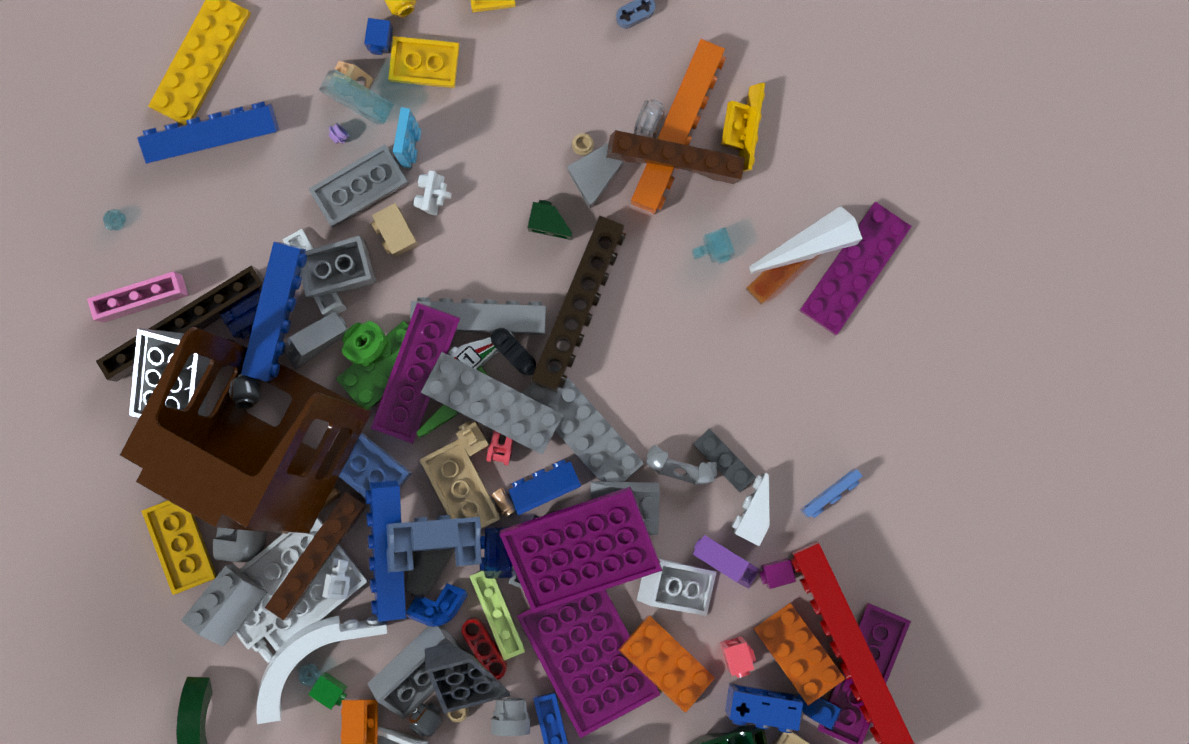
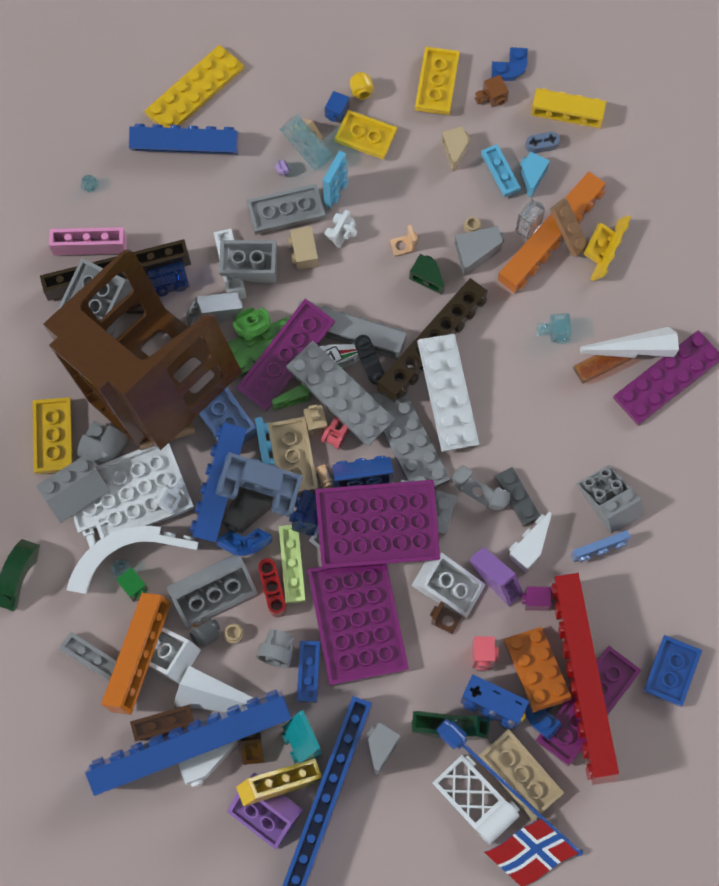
camera: 20 degrees right, 15 degrees down
(244, 391) = (146, 331): dark grey head -> none
(273, 311) = (190, 276): blue brick -> none
(314, 557) = (136, 487): reddish brown arch -> none
(424, 487) = (265, 446): none -> medium azure plate
(460, 678) = (247, 600): flat silver wedge -> none
(514, 182) = (410, 241): none -> light nougat bracket
(534, 46) = (455, 145): none -> tan slope
(596, 64) = (500, 170): none -> medium azure plate
(614, 364) = (448, 392): none -> white plate
(634, 55) = (533, 171): none -> medium azure slope
(644, 149) = (569, 262): reddish brown arch -> none
(666, 663) = (421, 645): orange plate -> none
(674, 621) = (437, 615): none -> reddish brown bracket
(697, 118) = (569, 227): none -> medium nougat plate
(827, 433) = (611, 498): none -> light grey slope
(943, 610) = (672, 671): none -> blue plate

